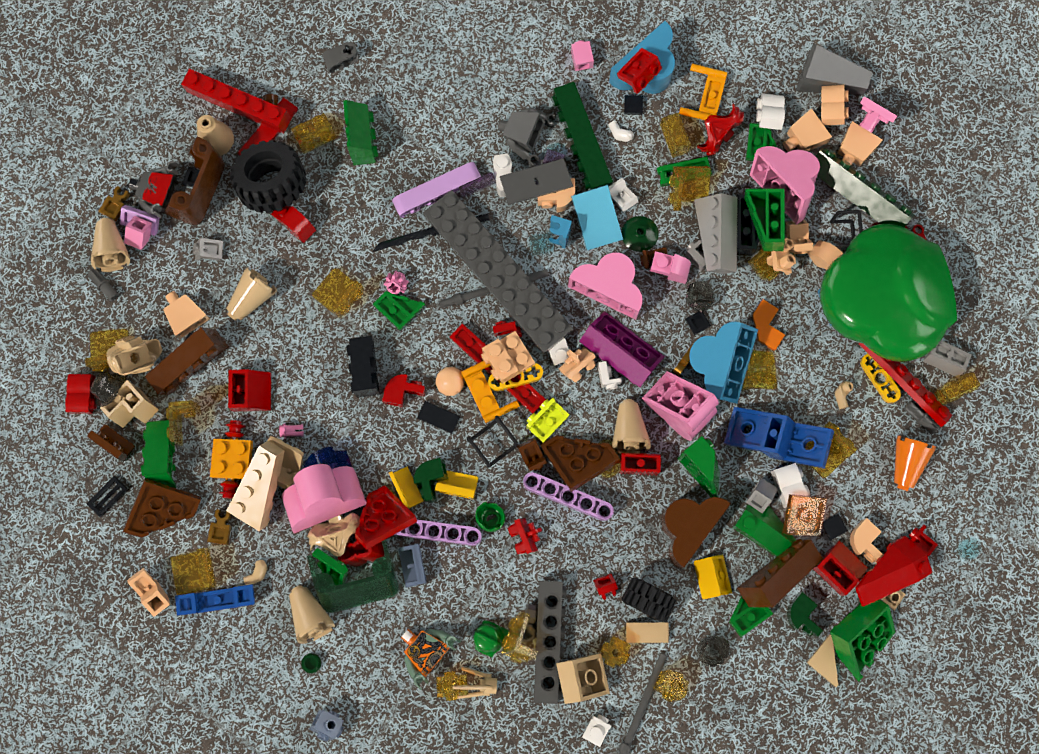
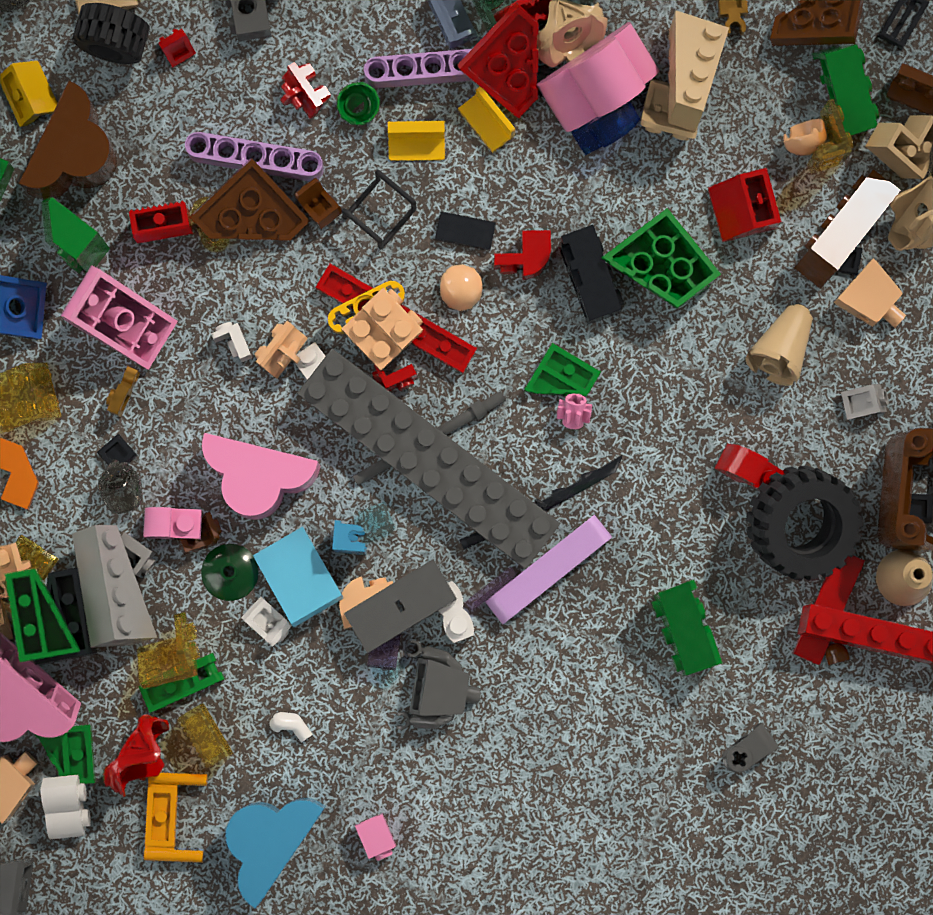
camera: 160 degrees right, 5 degrees up
(190, 428) = (805, 137): none -> light nougat hair
(231, 458) = (743, 105): light orange plate -> none
(289, 430) = (670, 165): bright pink pin -> none
(313, 133) = (758, 618): clear yellow bracket -> none
(313, 363) = (664, 260): none -> green wedge
(338, 292) = (656, 379): clear yellow bracket -> none
(427, 474) = (459, 144): dark green brick -> none
(483, 395) = (408, 273): light orange plate -> none
(547, 420) = (307, 258): neon yellow bracket -> none
(582, 136) = (347, 701): dark green brick -> none
(621, 349) = (220, 387): magenta slope -> none
(630, 429) = (185, 271): tan cone -> none
(633, 105) = (280, 775): black tile -> none
(640, 70) = (277, 810): red bracket -> none
(724, 359) = (65, 387): dark azure brick -> none

